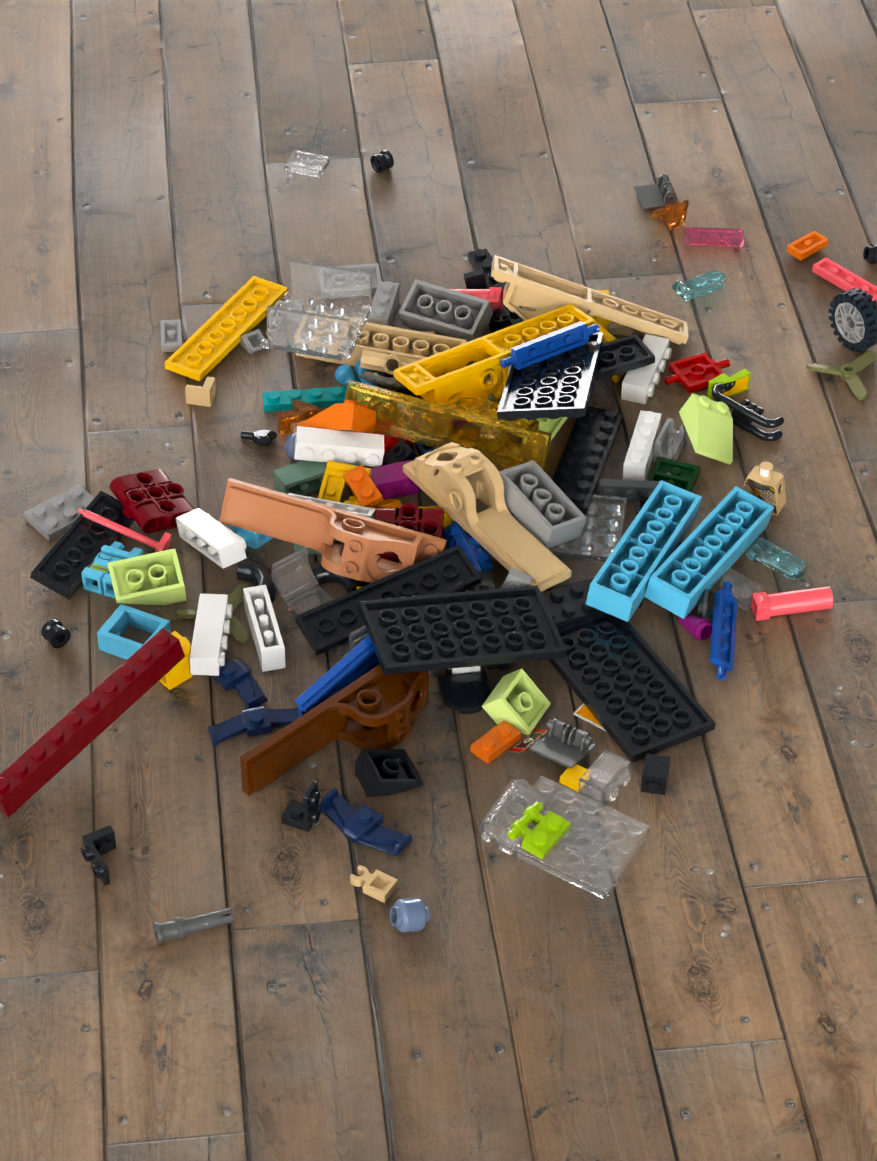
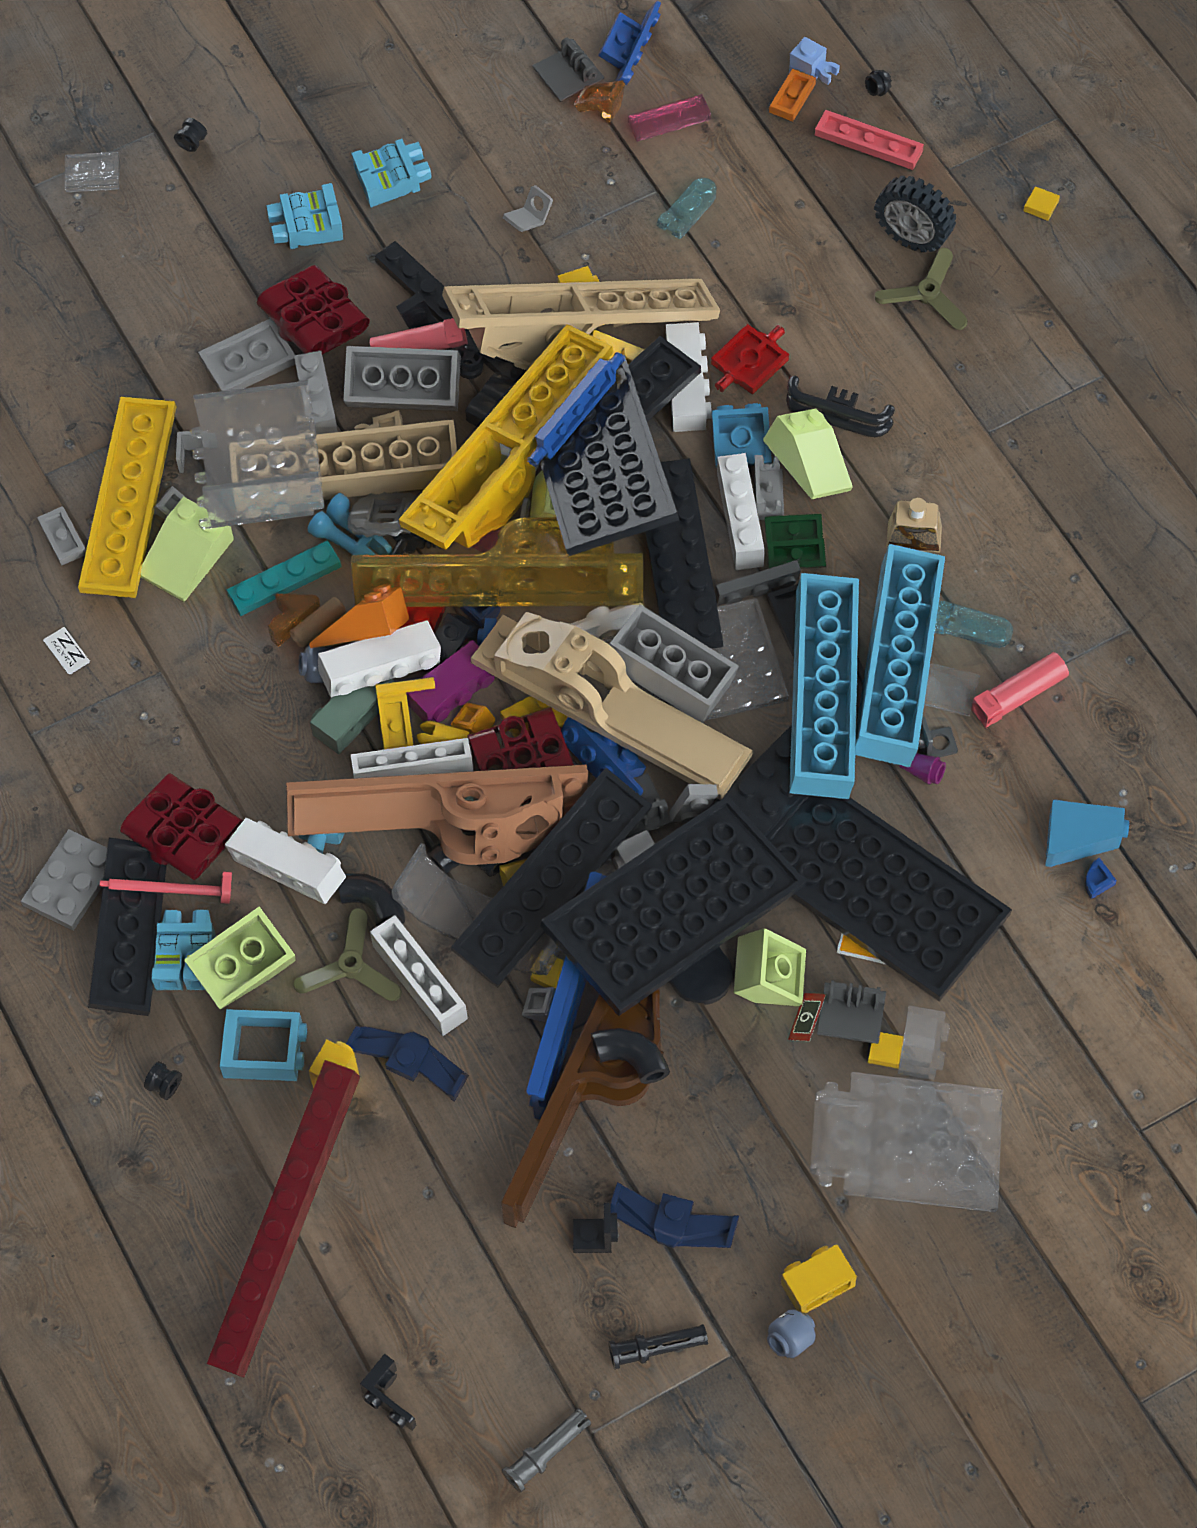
camera: 20 degrees left, 20 degrees up
(137, 396) = (66, 650): none -> white sticker
(201, 395) = (151, 620): tan panel -> none
(209, 634) = (360, 1015): white brick -> none
(248, 364) = (184, 550): none -> yellowish green slope
(254, 721) = (472, 1116): dark blue plate -> none
(260, 437) = (260, 663): black rock -> none
(295, 888) = (696, 1337): none -> black pin
(363, 487) = (437, 711): orange plate -> none
(375, 885) = (734, 1302): tan plate -> none
(378, 361) = (361, 495): tan piece -> none
(381, 694) = (632, 1048): none -> black cylinder
(386, 772) = (669, 1136): black slope -> none
(405, 262) = (313, 311): none -> dark red connector
(433, 221) = (307, 218): none -> medium azure hips
(448, 890) = (818, 1278): none -> yellow brick
(495, 741) = (769, 1033): orange plate -> none
(504, 213) = (390, 171): none -> medium azure hips
(544, 836) = (899, 1163): lime plate -> none
(587, 261) = (529, 216): none -> light grey bracket
(655, 774) = (977, 1013): black brick -> none
(666, 402) = (741, 432): none -> dark azure plate
(705, 188) = (625, 40): none -> blue bracket
(723, 630) = (961, 764): blue plate -> none
(732, 385) = (798, 367): slope -> none
(793, 729) = (1098, 879): none -> blue tile
(794, 696) = (1083, 831): none -> dark azure slope
(831, 228) = (811, 59): none -> light blue brick

